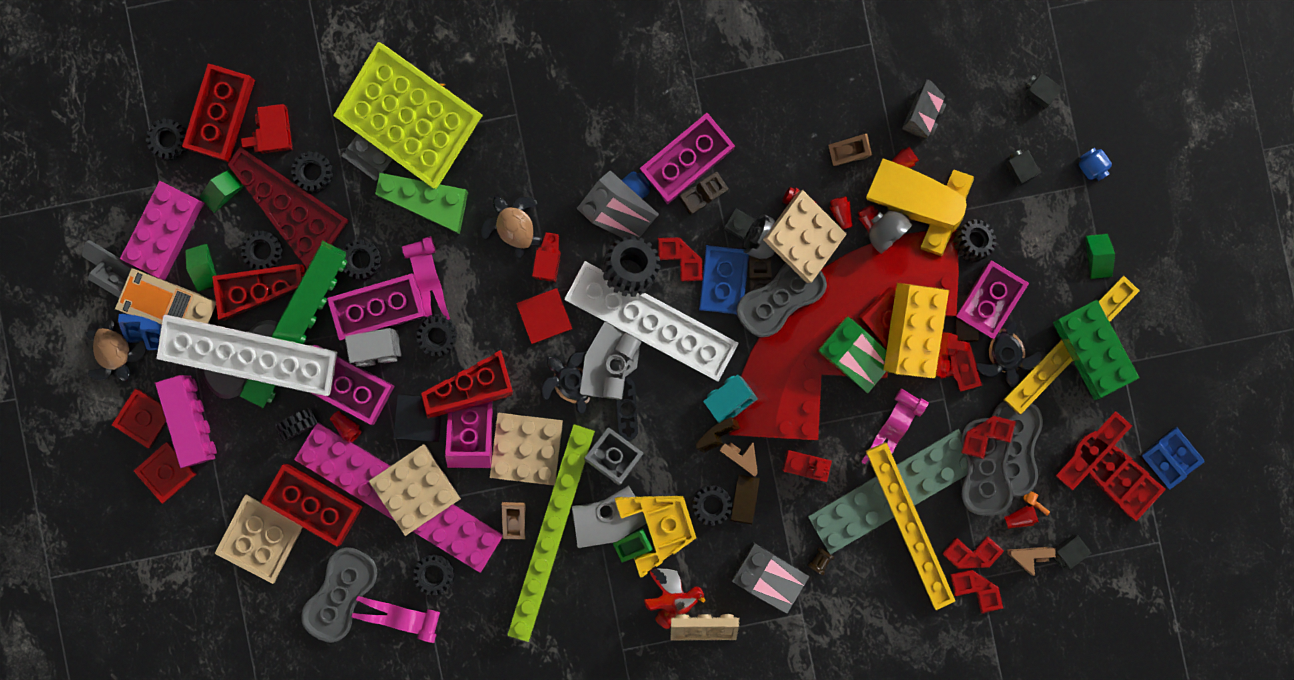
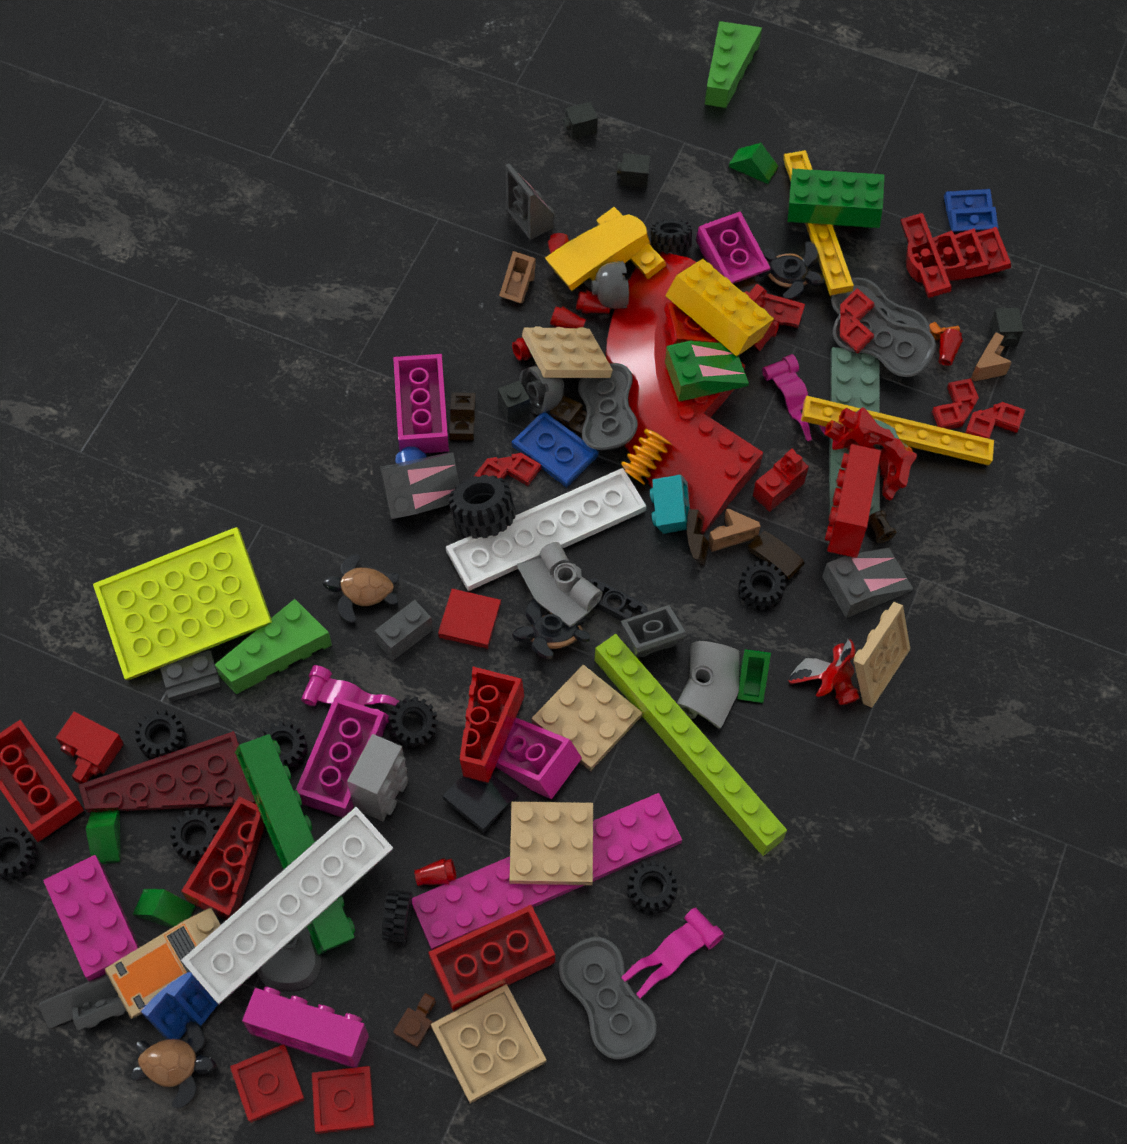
camera: 55 degrees left, 25 degrees down
(240, 483) = (414, 1024): none -> reddish brown plate
(357, 391) = (414, 831): dark pink brick -> none
(500, 279) = (403, 630): none -> dark grey brick
(513, 520) = (650, 768): medium nougat slope -> none
(547, 259) = (421, 575): red hinge -> none
(667, 524) = (751, 629): yellow wing -> none
(756, 356) = (645, 455): none -> light orange piece
(811, 536) = (852, 500): none -> red brick
(887, 521) = (864, 431): none -> red hips
(1095, 164) = (672, 121): blue head -> none
(1199, 167) = (731, 56): none -> bright green wedge

